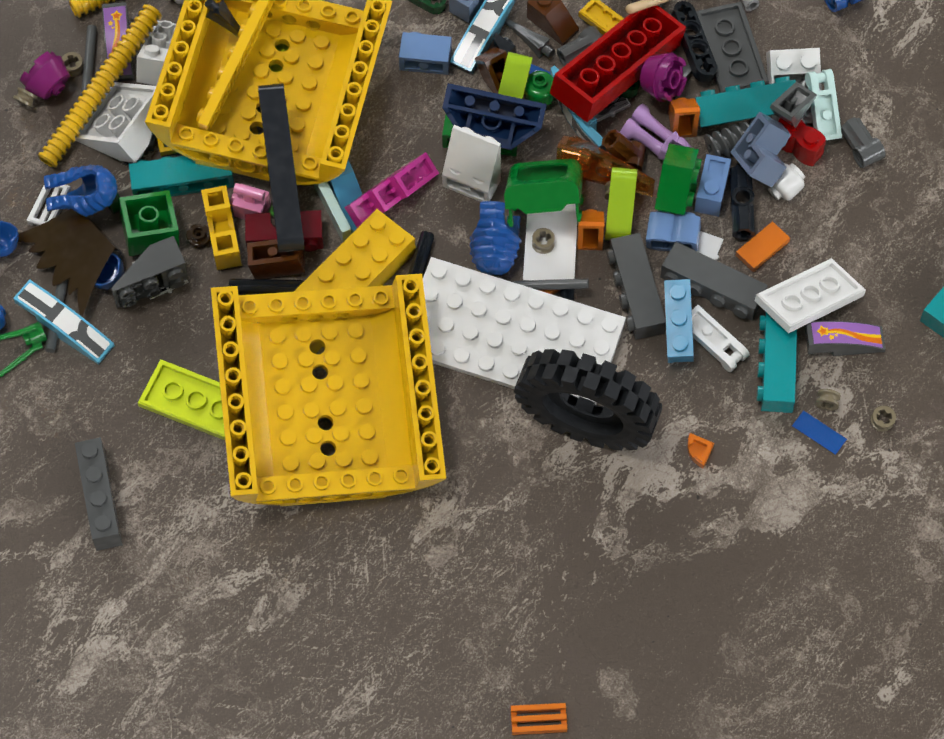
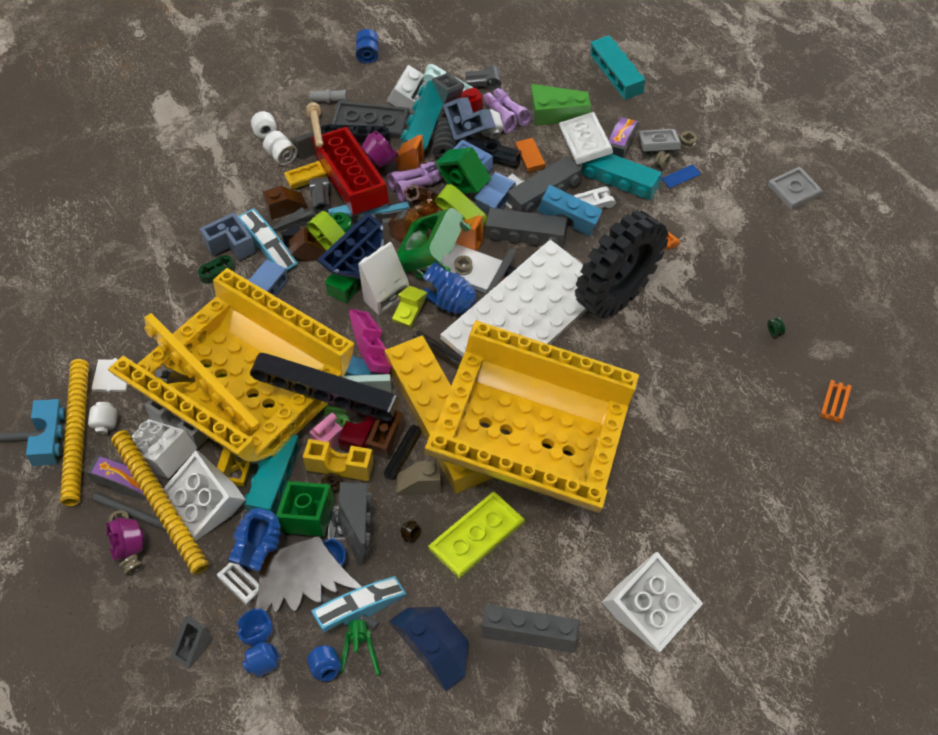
camera: 65 degrees left, 10 degrees down
(49, 409) = (434, 642): none -> dark blue wedge
(170, 335) = (410, 531): none -> dark brown plate
(177, 604) = (653, 602): none -> white slope
(460, 210) = (410, 305): none -> neon yellow slope
(616, 616) = (776, 327): none -> dark green bush
(819, 209) = (509, 119): none -> lavender piece
(856, 244) = (557, 105): none -> bright green wedge
(857, 383) = (659, 140): none -> light grey tile
(864, 573) = (795, 188): none -> light grey tile

